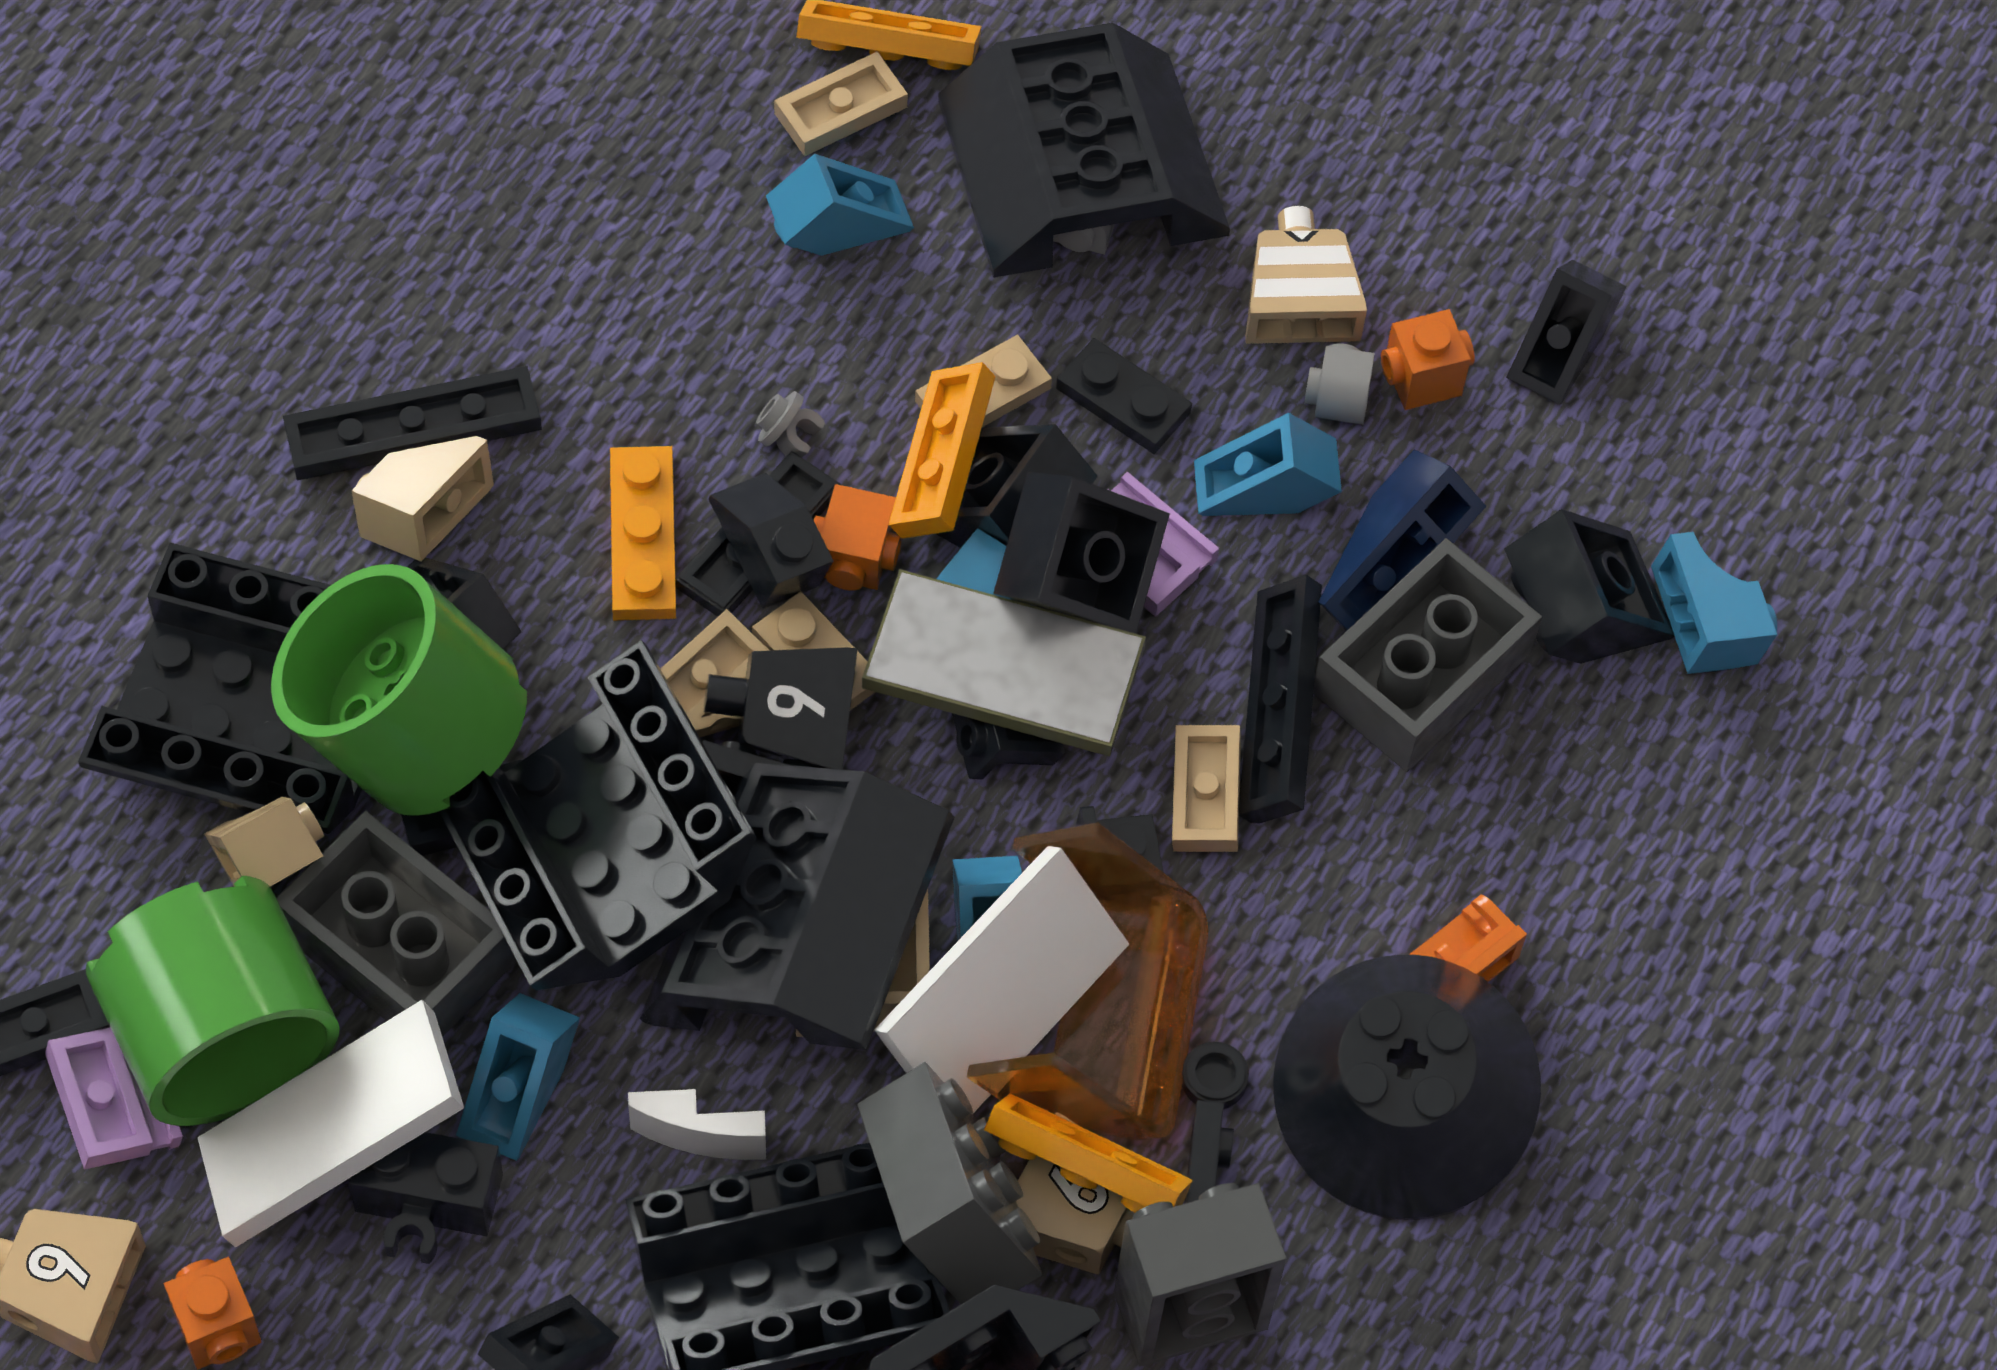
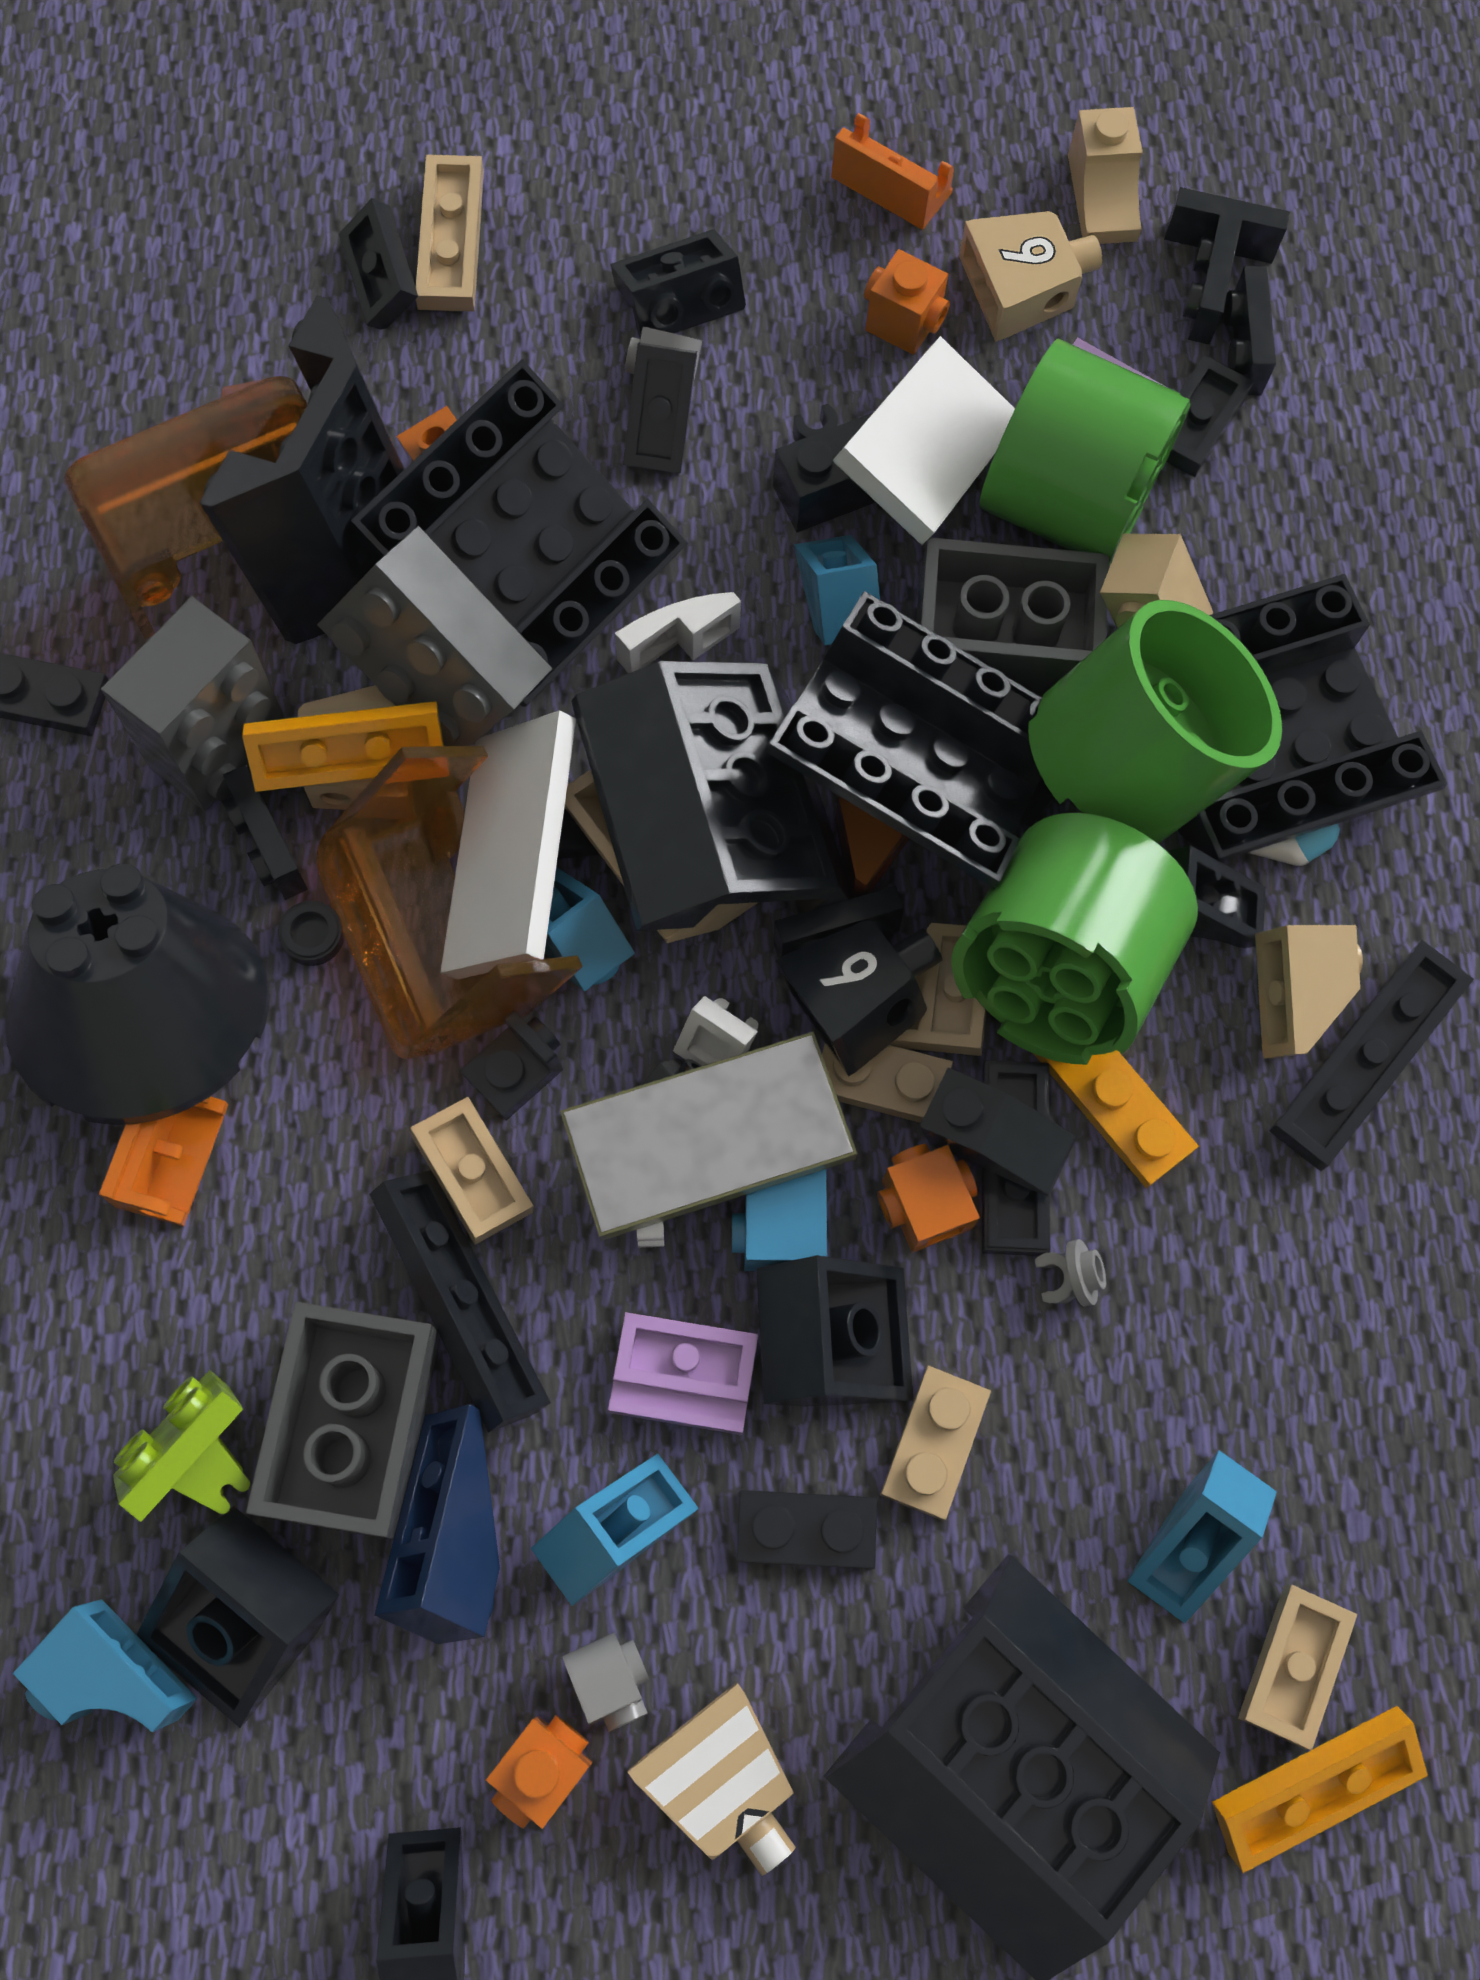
camera: 145 degrees right, 10 degrees up
(594, 587) = (1076, 937): none -> bright green brick
(935, 760) = (714, 1033): none -> white tile
(942, 450) = (912, 1315): light orange plate -> none
(1081, 551) = (708, 1273): black brick -> none
(1567, 709) = (183, 1451): none -> lime plate

